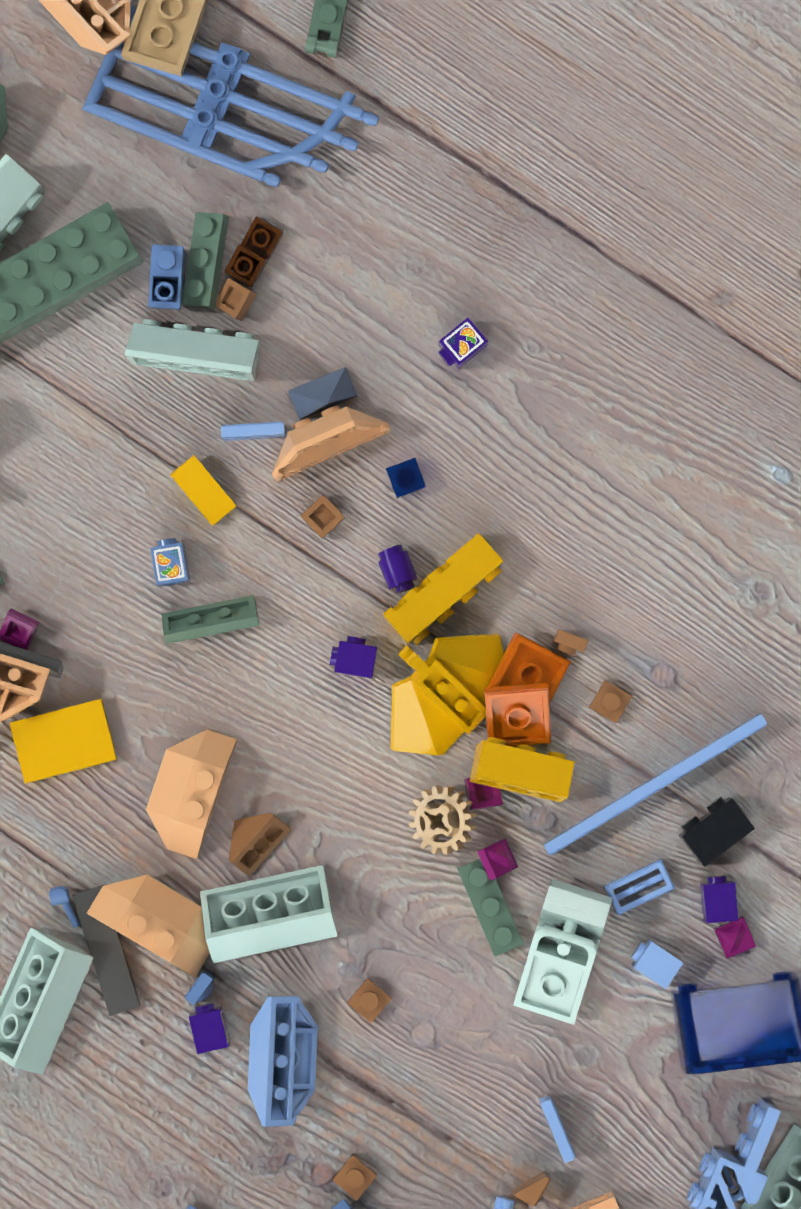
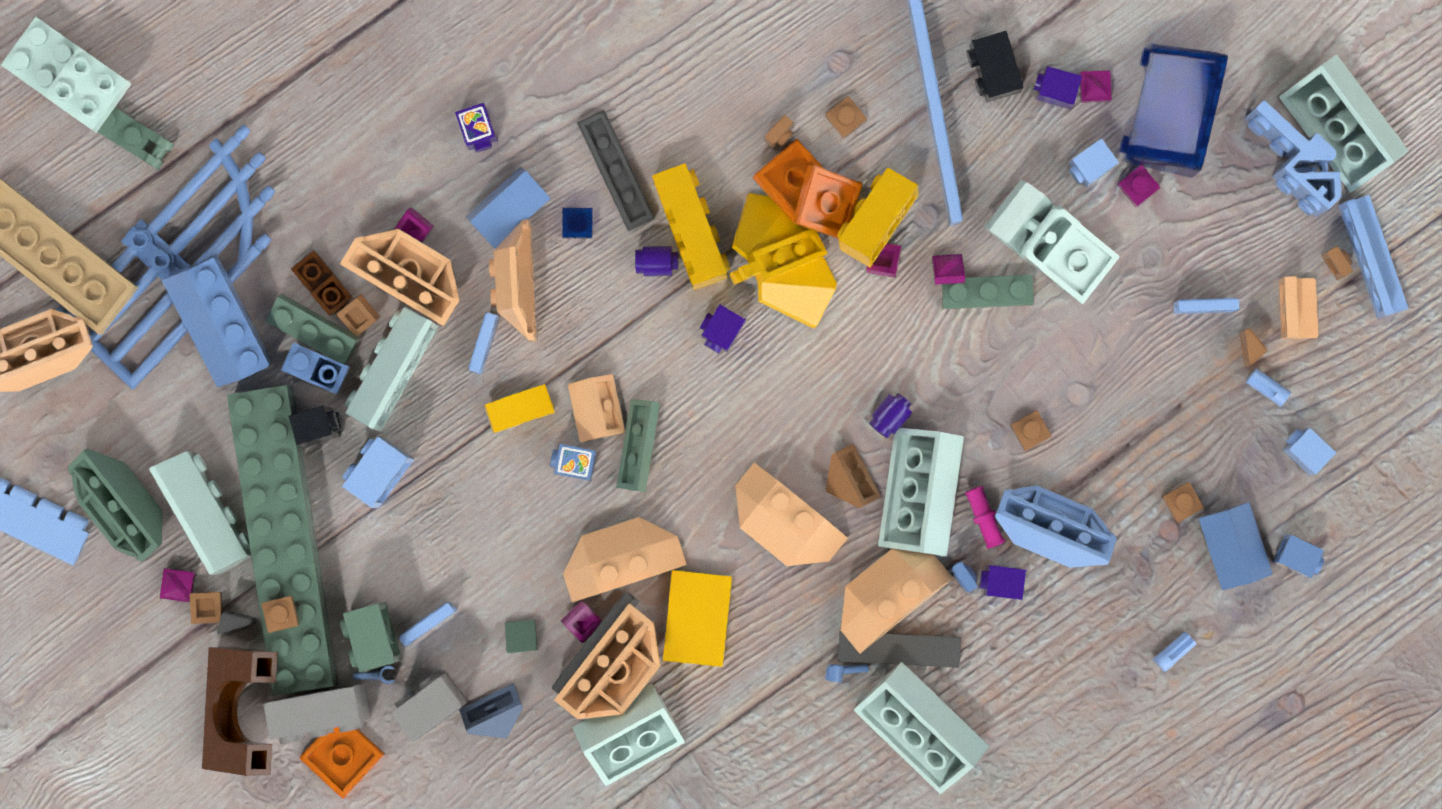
camera: 70 degrees left, 0 degrees up
(87, 376) = (376, 472): none -> light blue brick
(94, 645) = (620, 557): none -> light nougat wedge
(110, 299) = (315, 425): none -> black brick
(177, 165) = (217, 321): none -> medium blue slope
(231, 565) = (596, 408): none -> light nougat panel
(266, 986) = (984, 516): none -> dark pink pin
(293, 329) = (406, 272): none -> light nougat wedge
(322, 393) = (472, 269): sand blue slope -> none
(322, 517) = (584, 310): medium nougat plate -> none
(332, 856) = (891, 415): none -> dark purple brick
(340, 320) = (414, 225): none -> magenta tile
(394, 402) = (507, 206): none -> medium blue piece
(455, 817) = (901, 315): tan gear -> none
(472, 496) = (616, 170): none -> dark grey tile
(634, 875) = (1019, 153): light blue tile -> none
(652, 1017) = (1138, 186): none -> magenta plate

